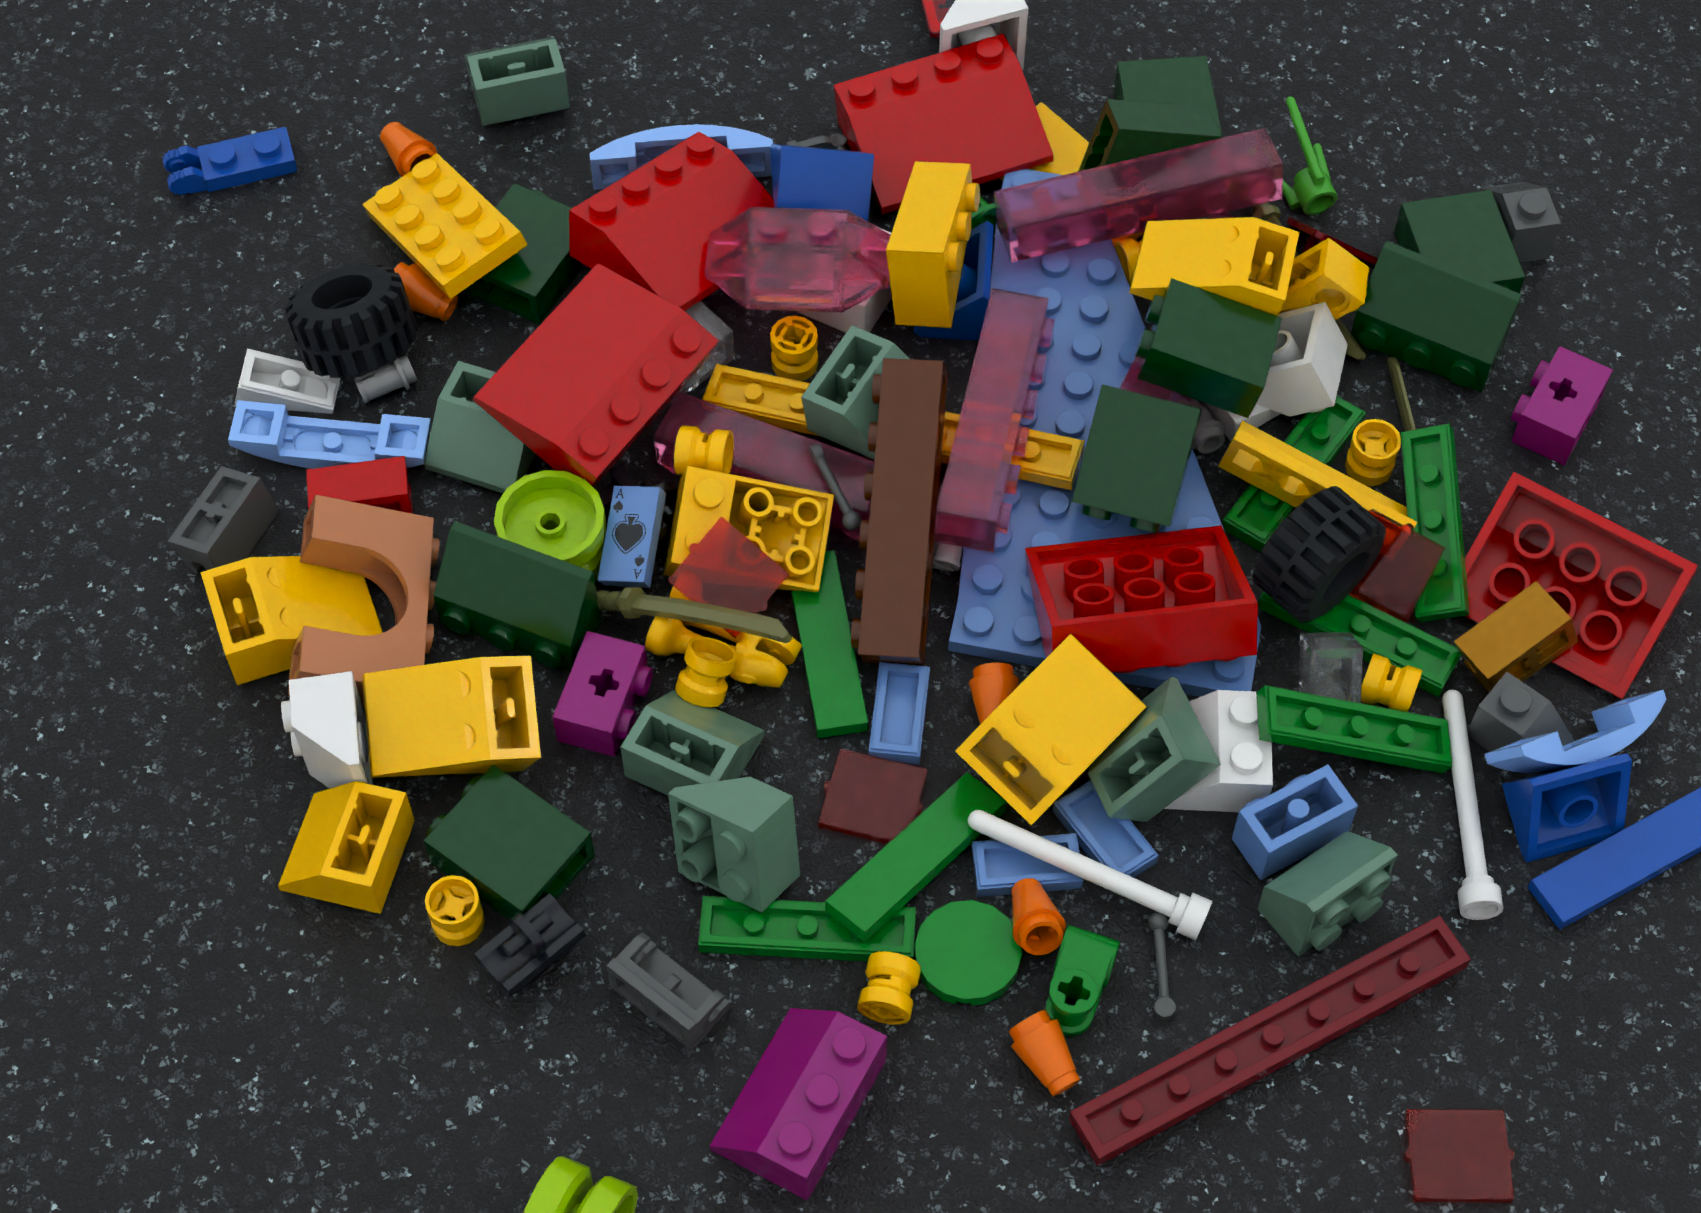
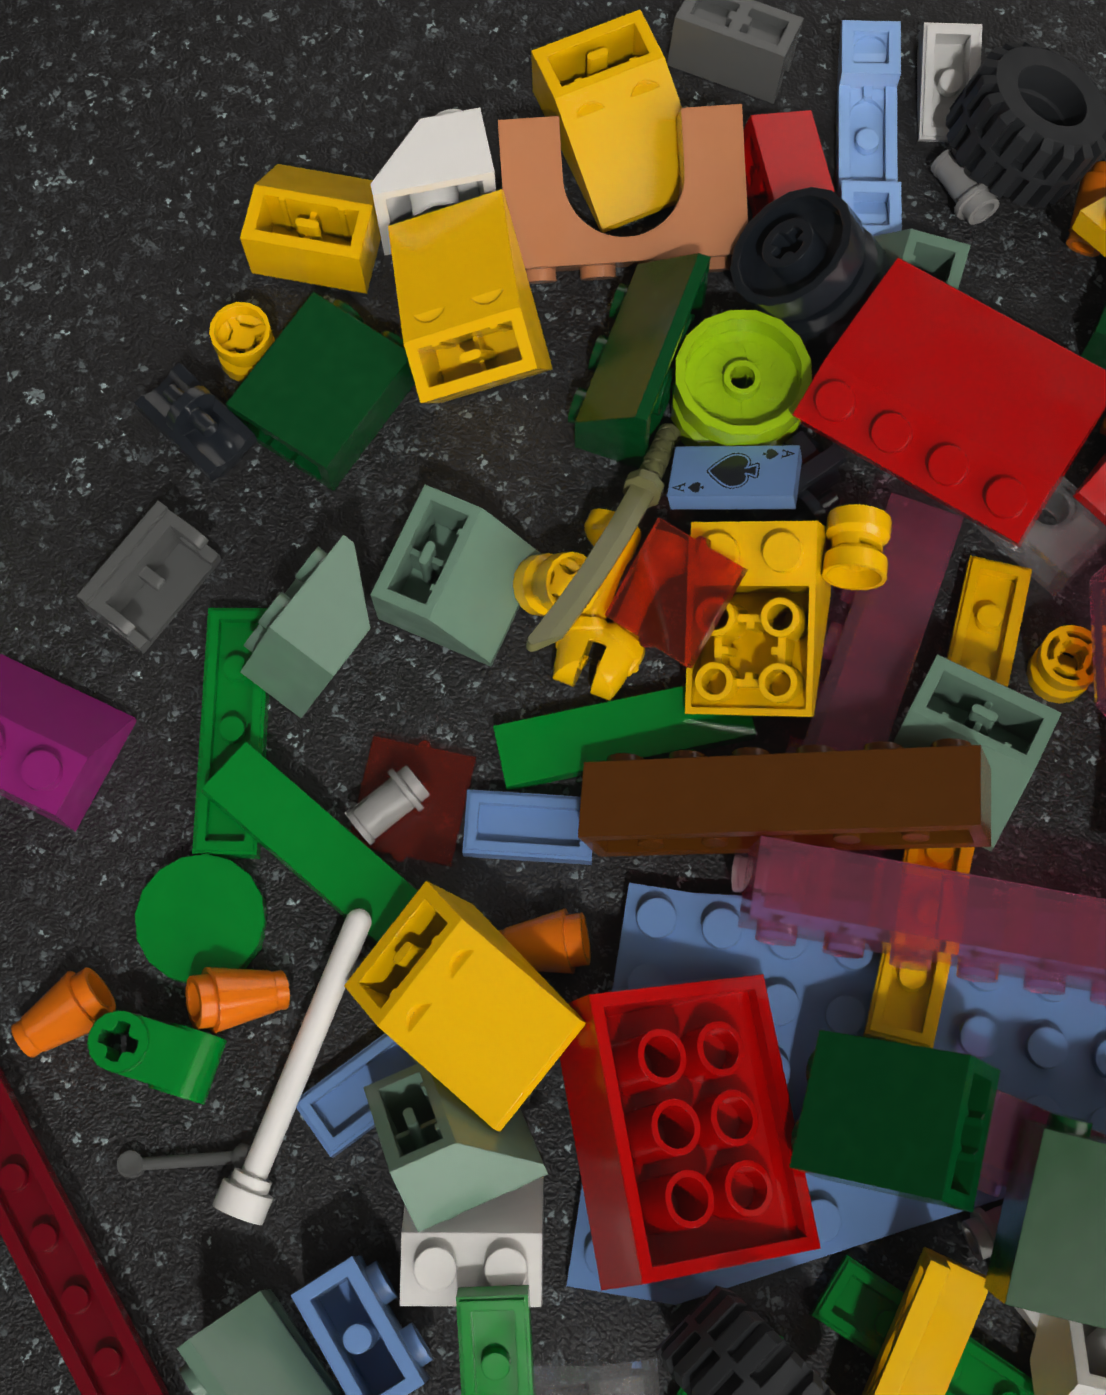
camera: 90 degrees right, 15 degrees up
(458, 468) = (808, 264): none -> black wheel
(602, 694) = (503, 453): magenta brick -> none
(851, 519) = (781, 742): dark grey hinge -> none
(880, 802) = (388, 804): none -> light grey pin
(889, 988) = (145, 825): yellow wheel -> none
(1001, 866) = (305, 958): medium blue tile -> none

